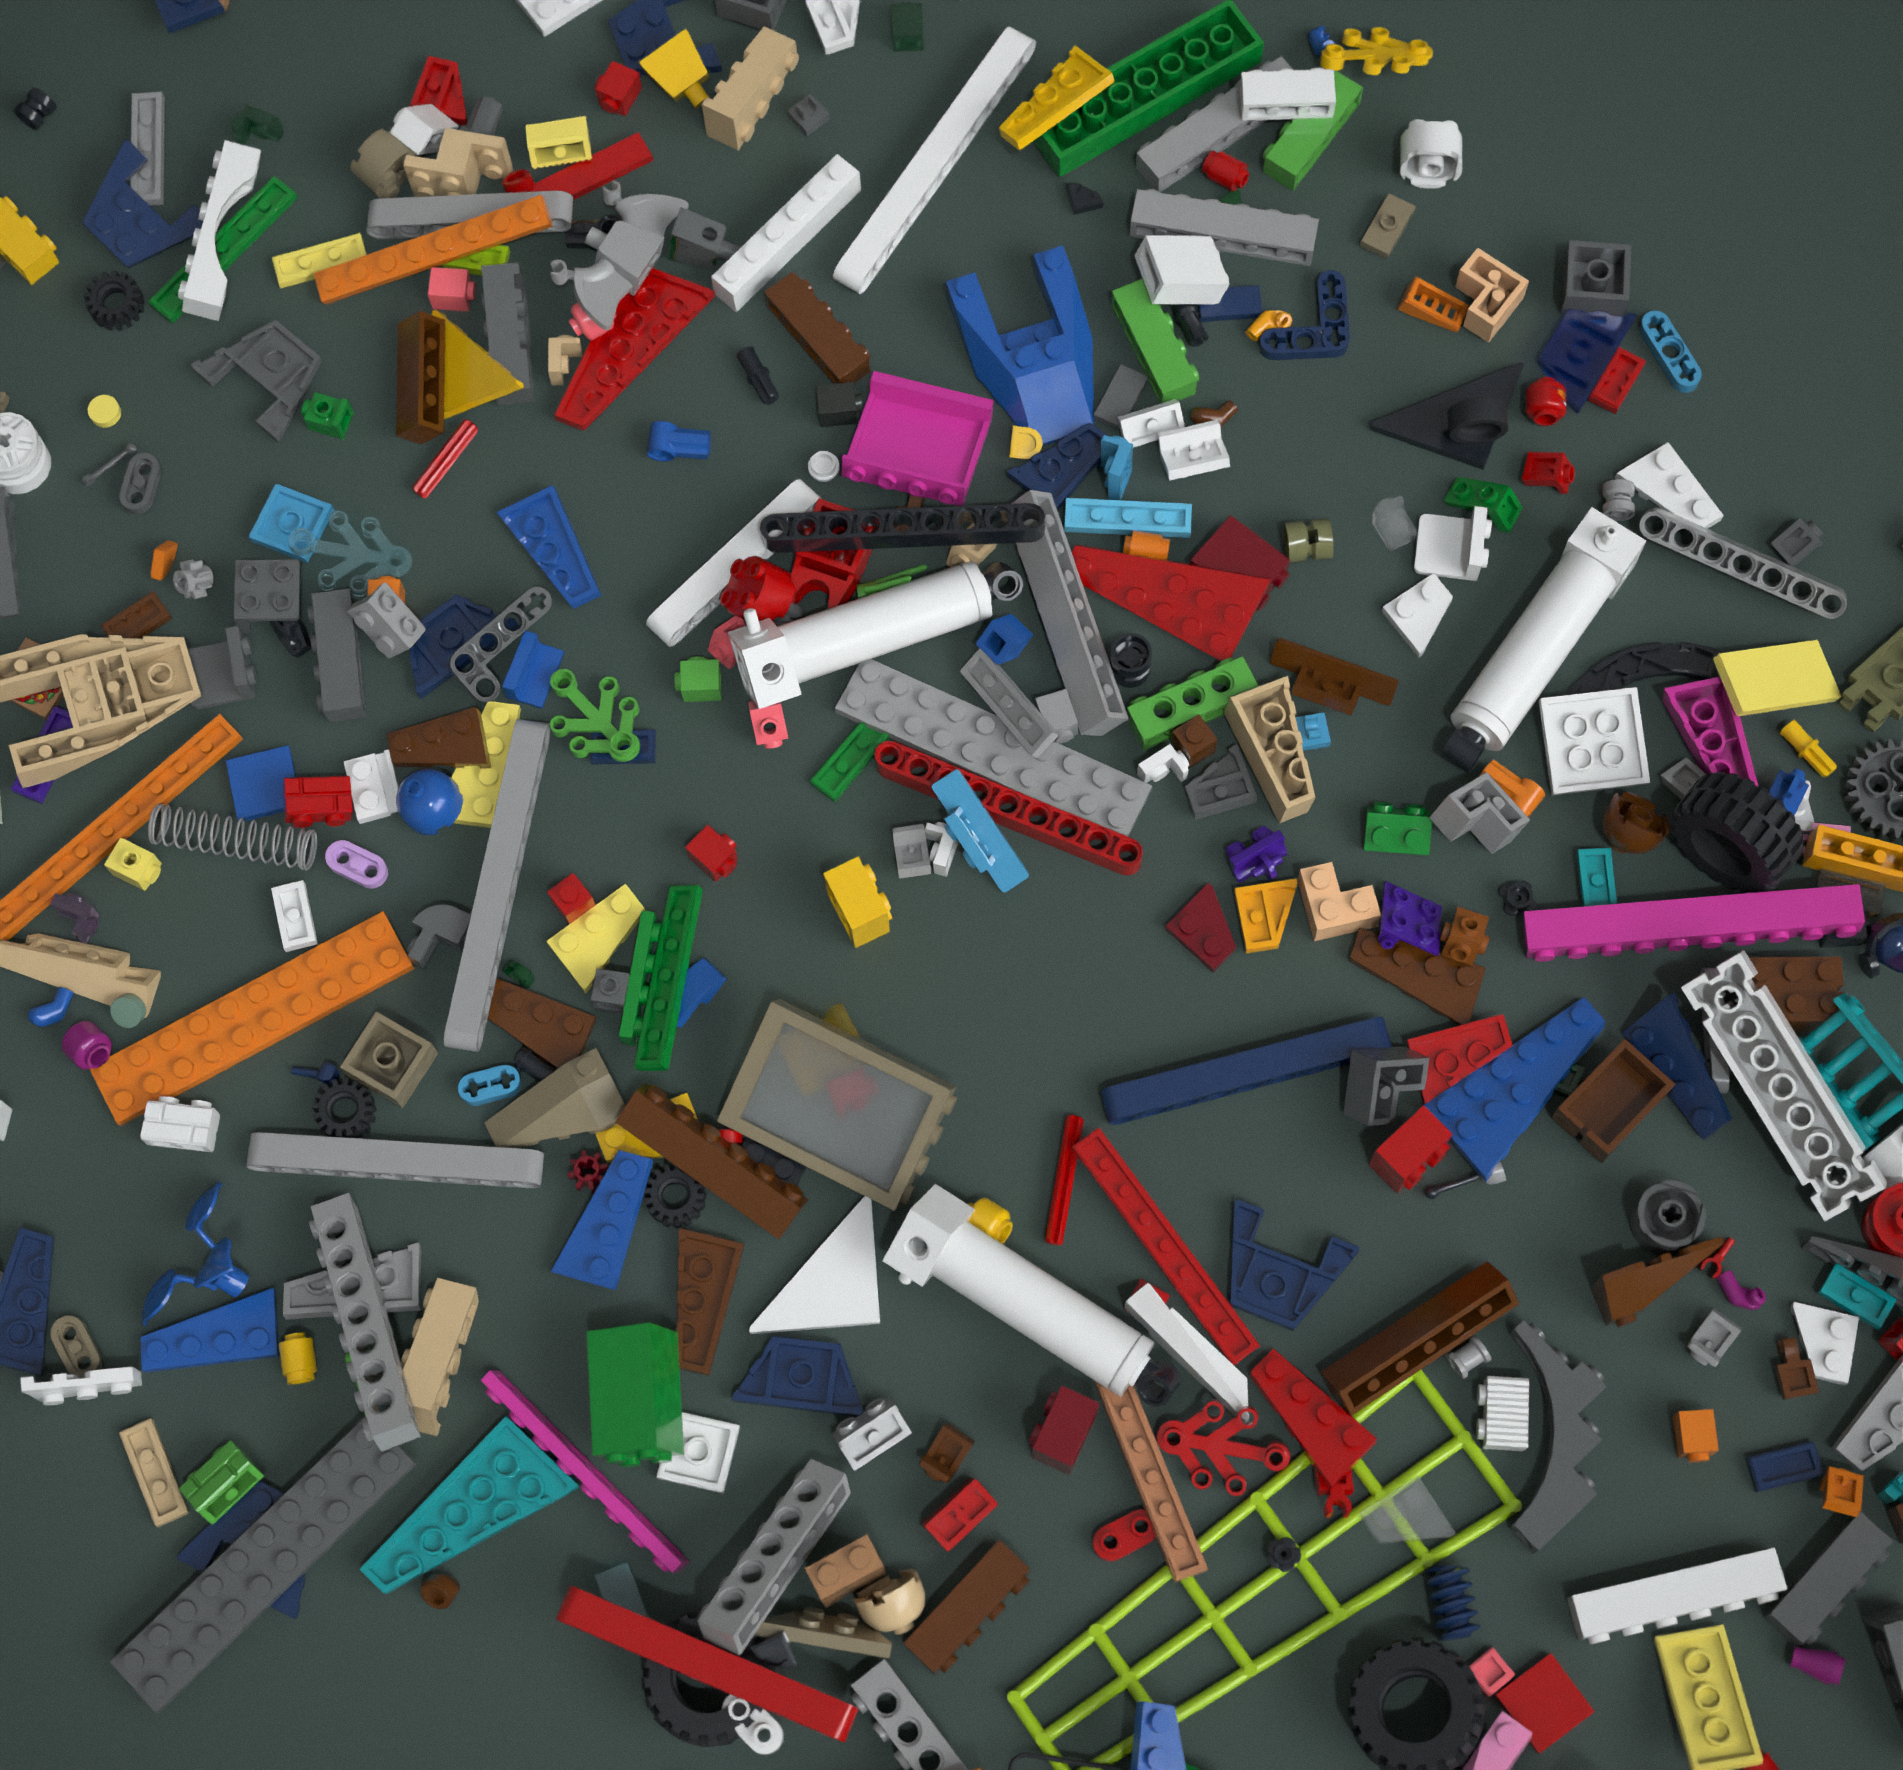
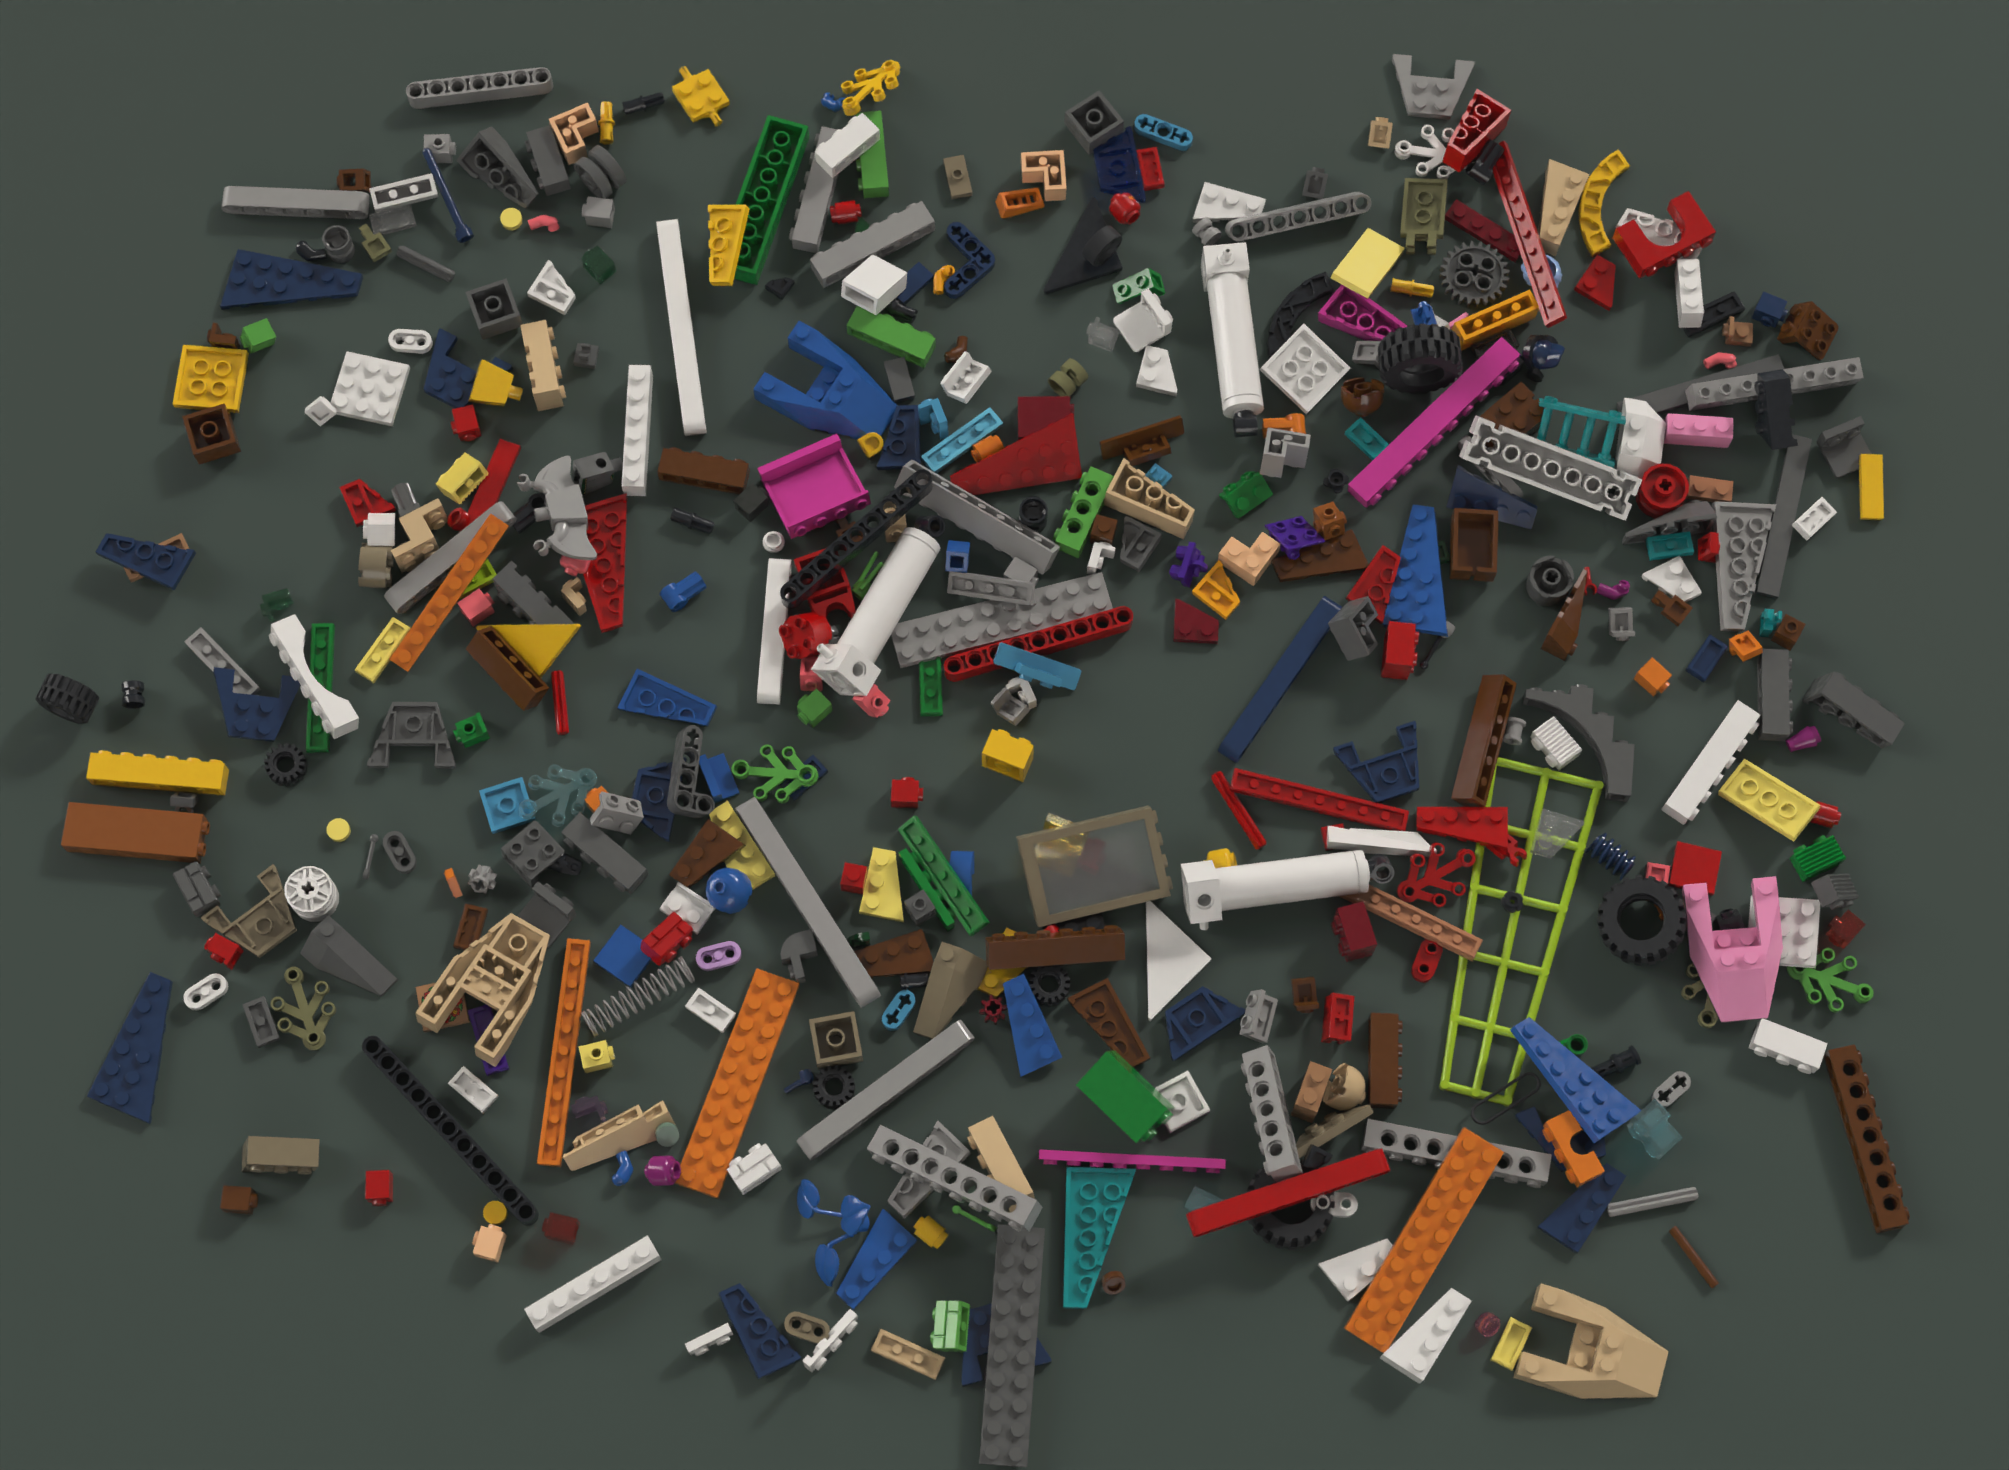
camera: 45 degrees left, 0 degrees up
(1146, 424) = (929, 380): white plate -> none
(1431, 153) = (949, 119): white brick -> none
(1548, 470) = (1157, 244): red bracket -> none

